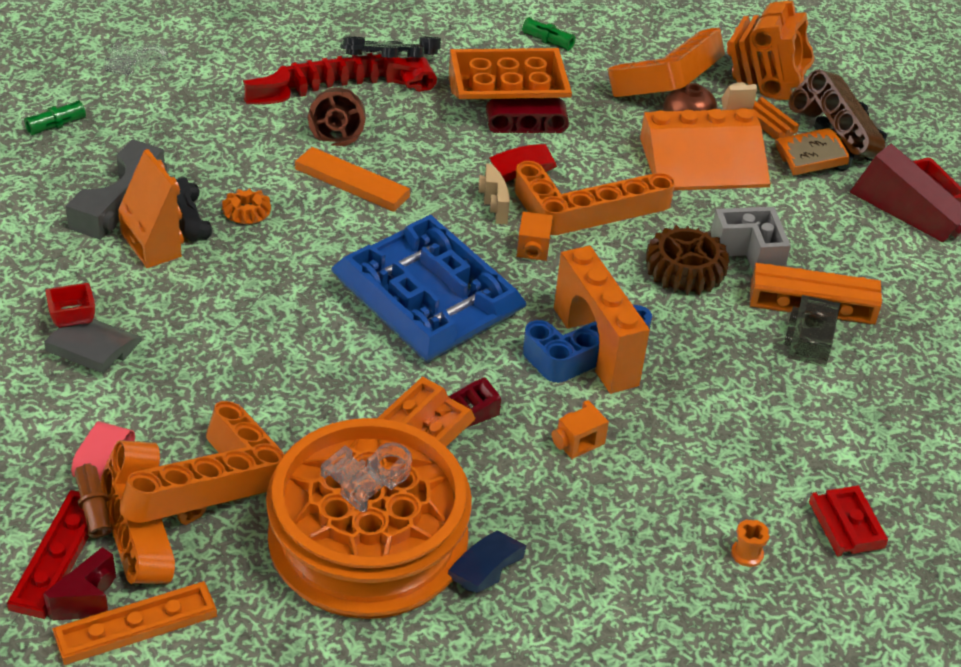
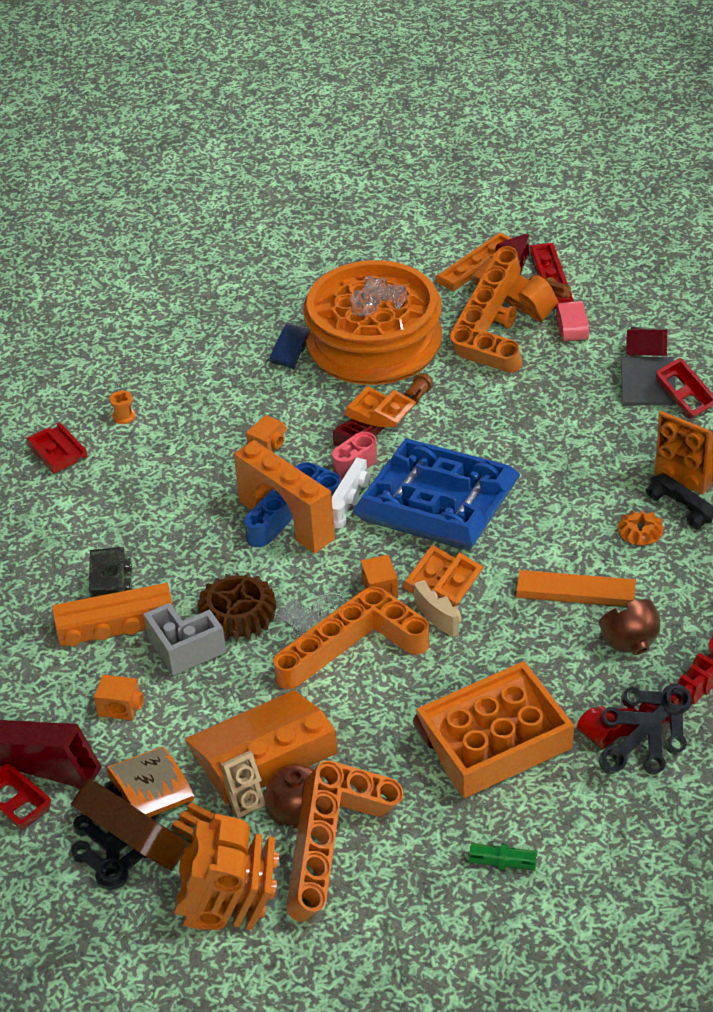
camera: 165 degrees right, 0 degrees up
(56, 357) = (646, 341): none -> dark red slope
(474, 225) = (445, 574): none -> orange slope
(496, 363) = (360, 445): none -> coral beam
(507, 161) = (429, 655): red slope -> none
(510, 337) = (348, 491): none -> white plate
(600, 230) = (302, 619): none -> clear piece
(825, 220) = (118, 697): none -> orange brick

